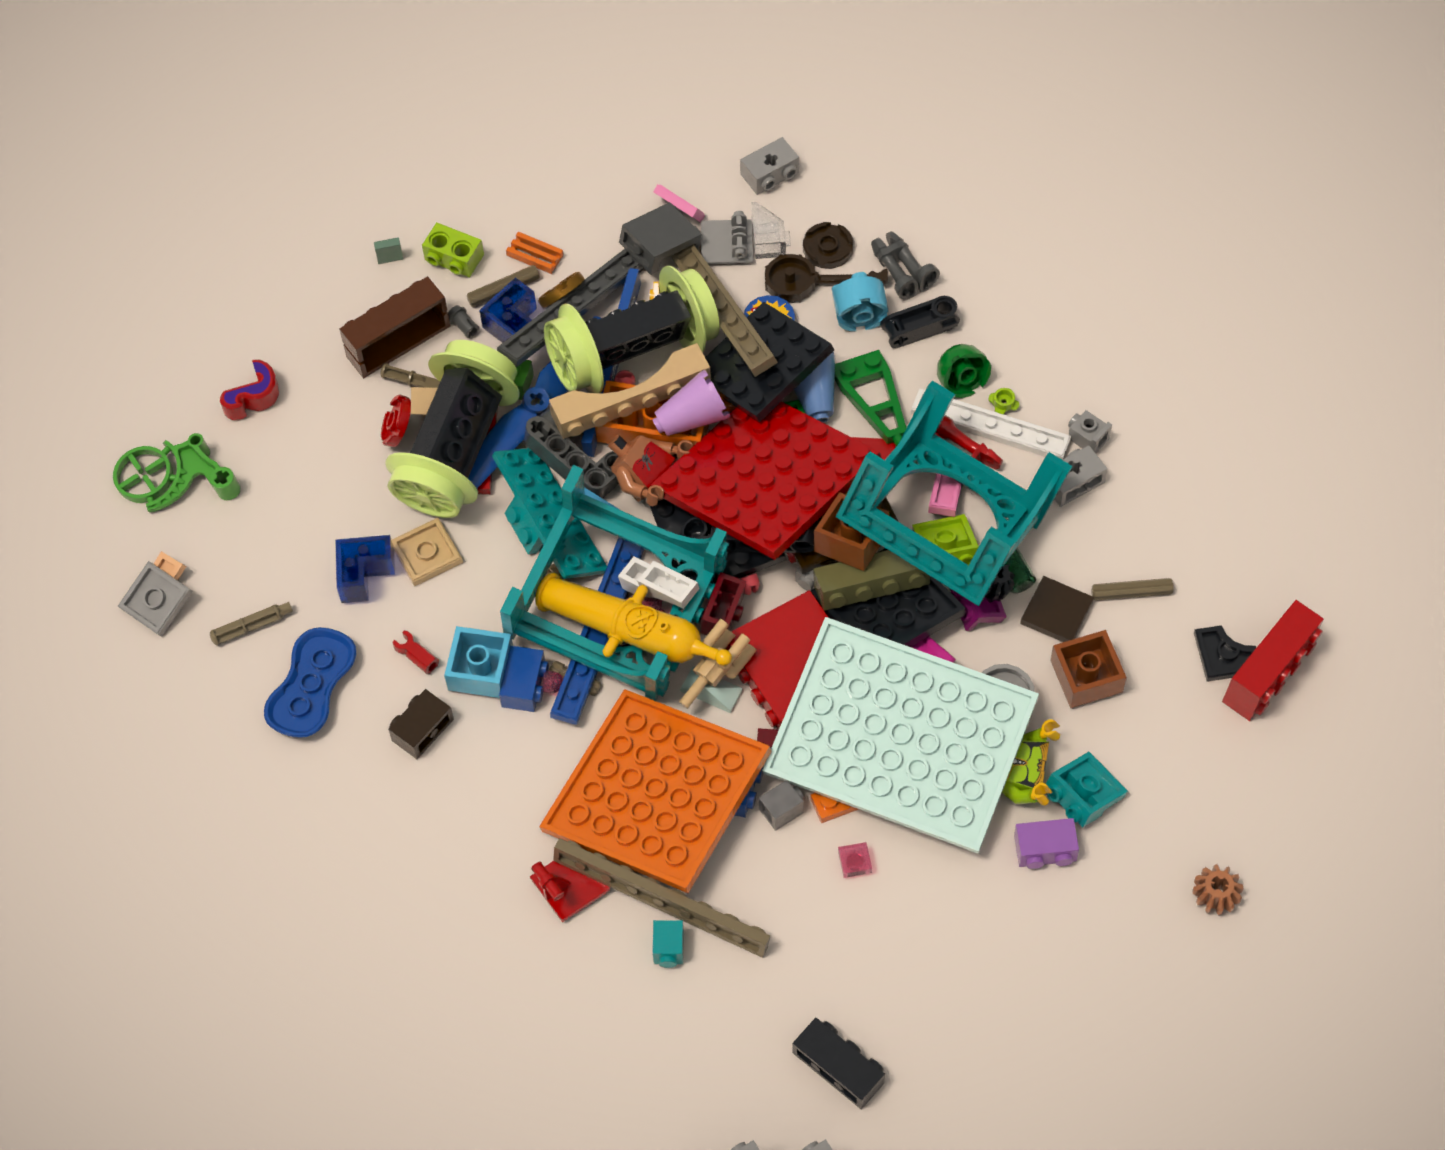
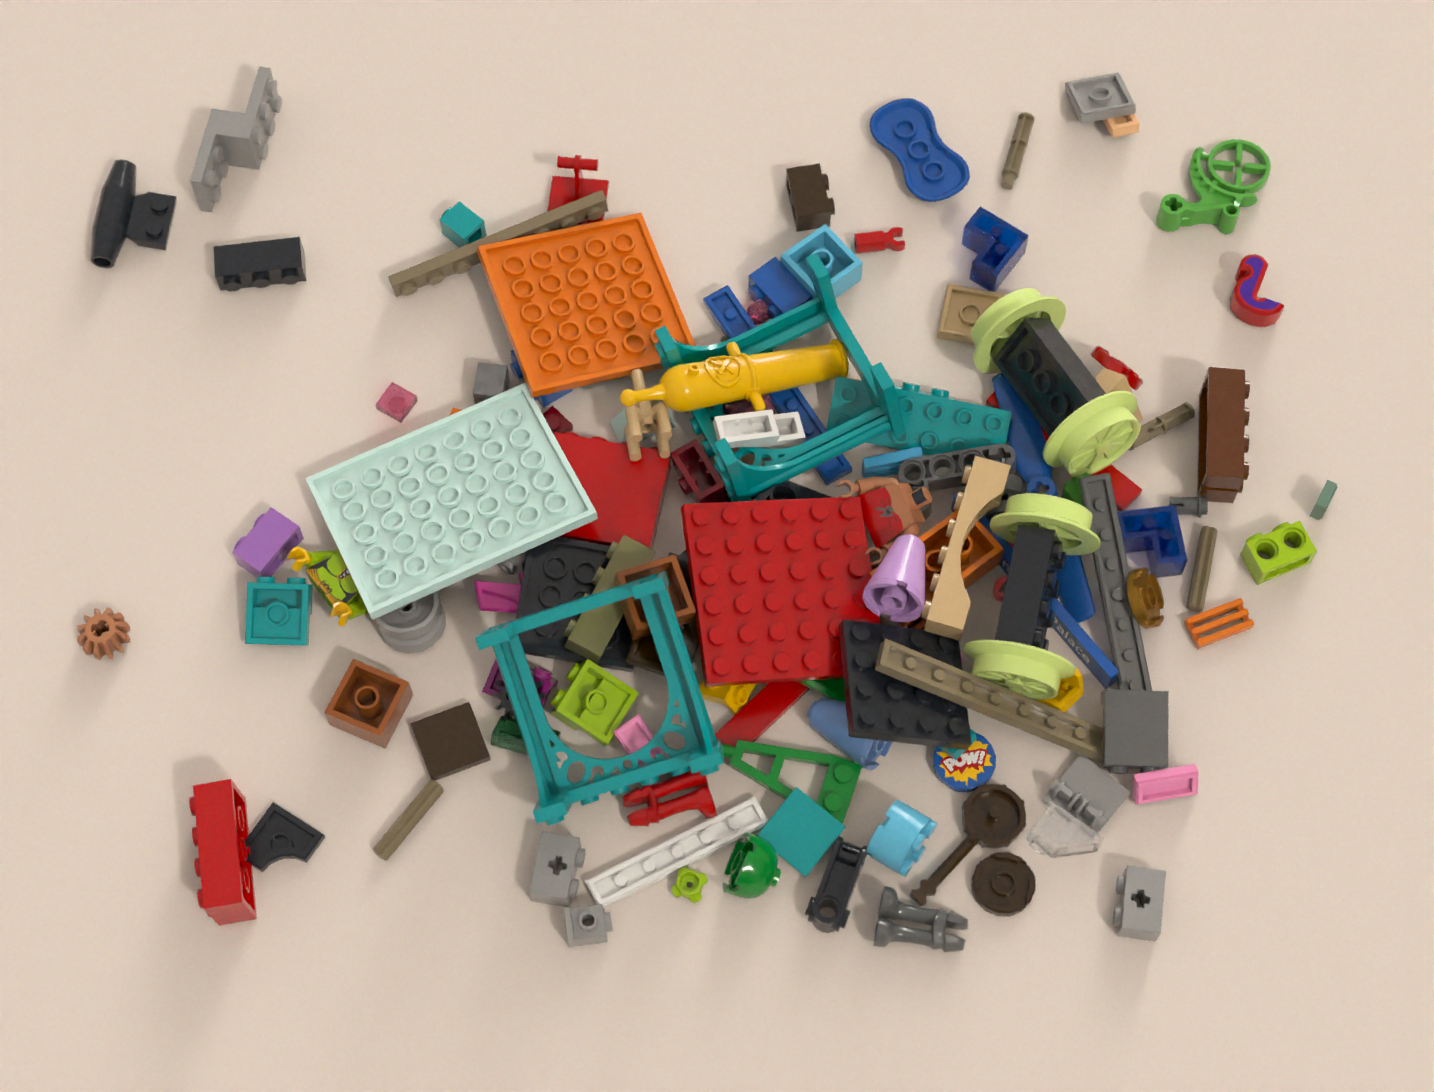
camera: 130 degrees right, 5 degrees up
(908, 363) = (801, 831): none -> teal tile

